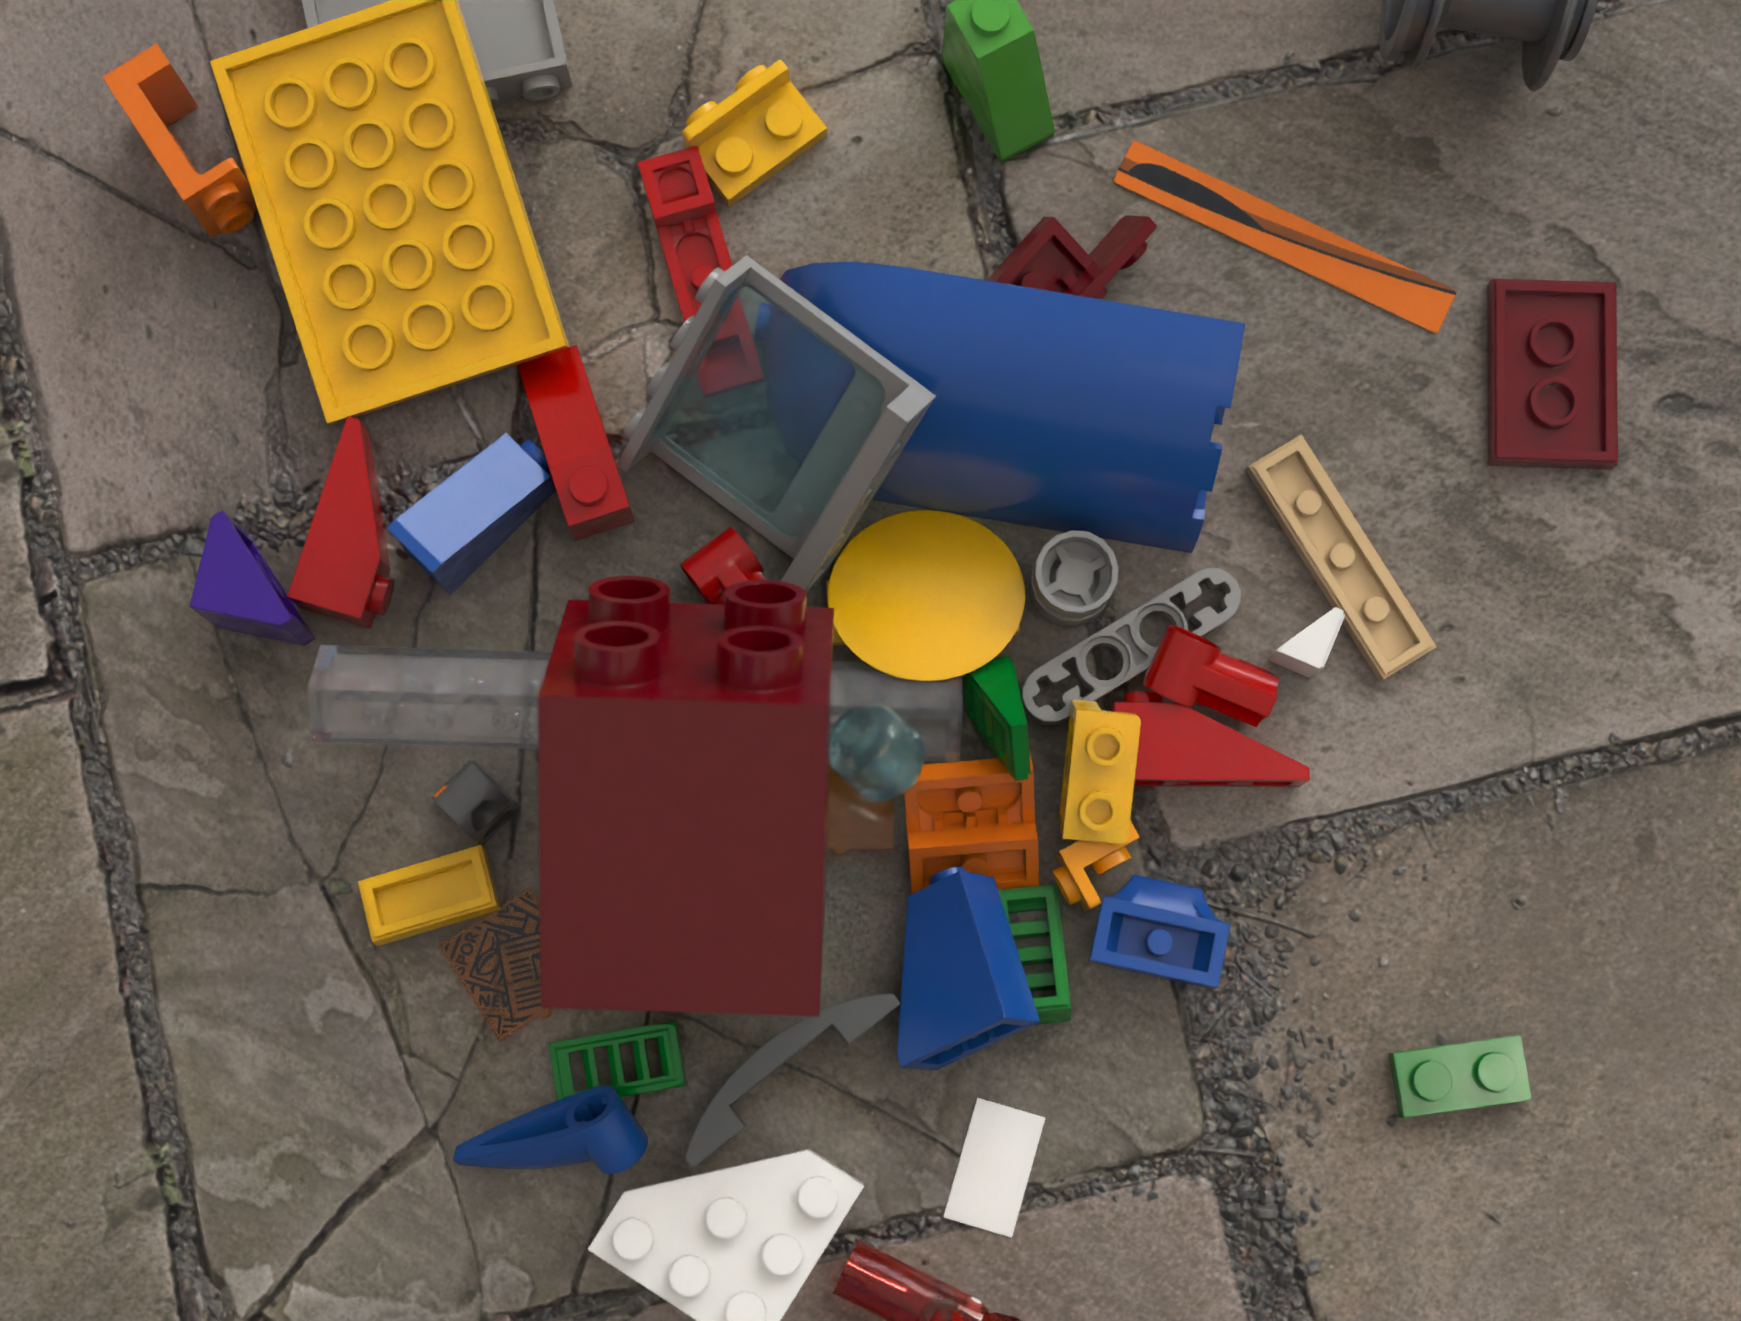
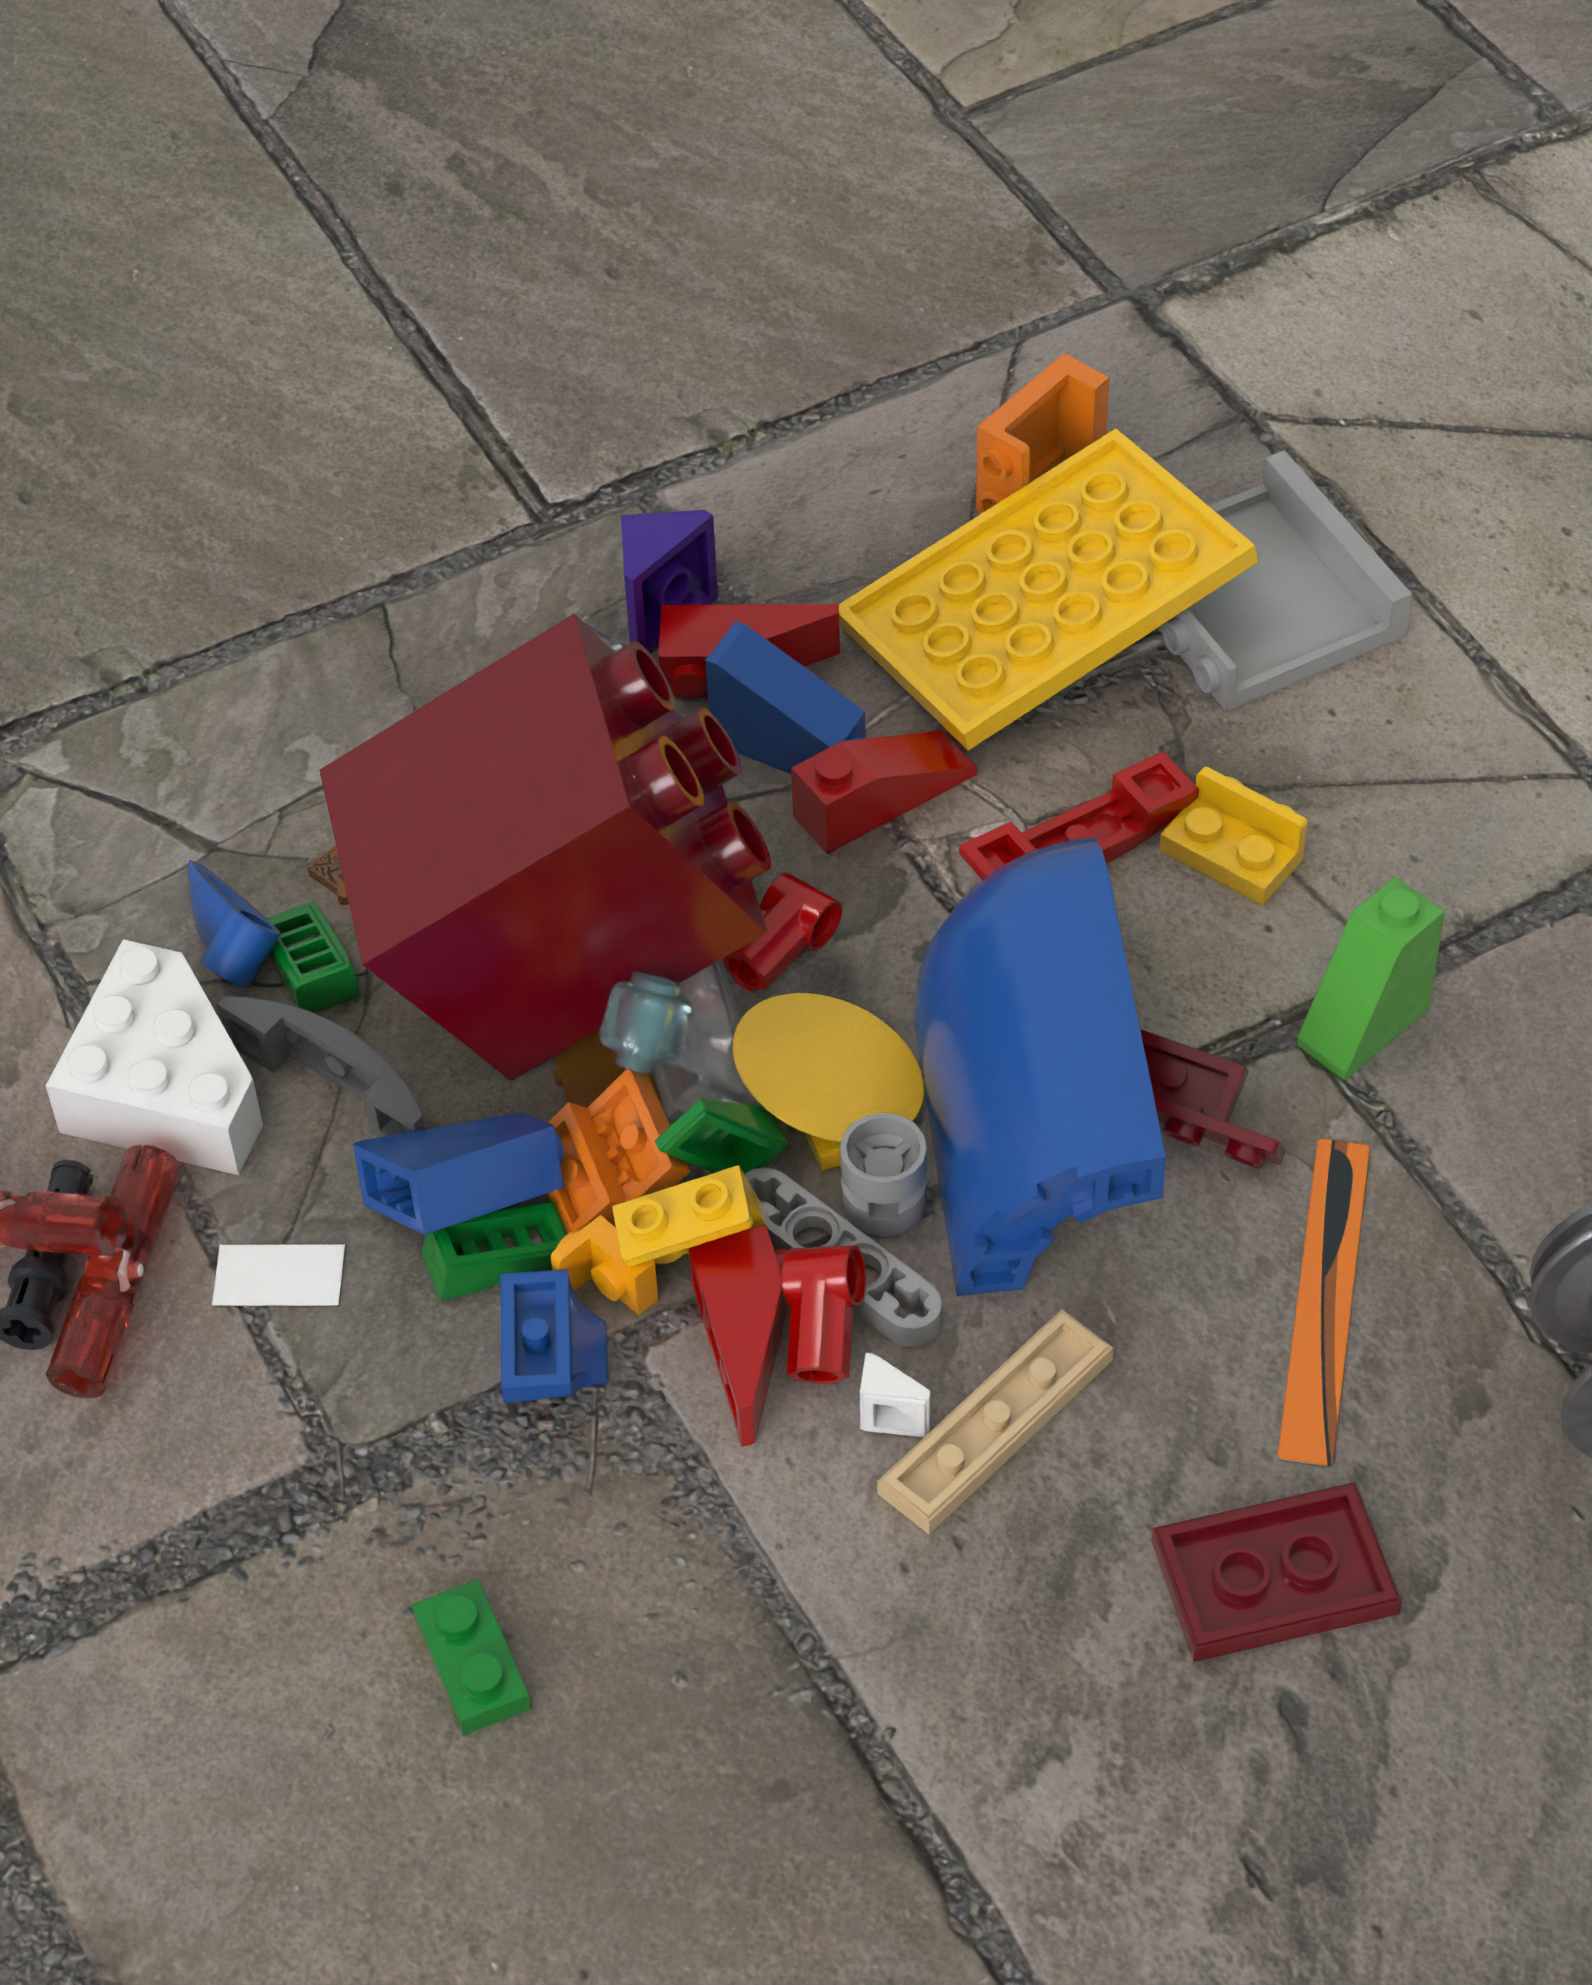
camera: 80 degrees right, 30 degrees down
(777, 415) = (954, 869): clear light blue panel -> none

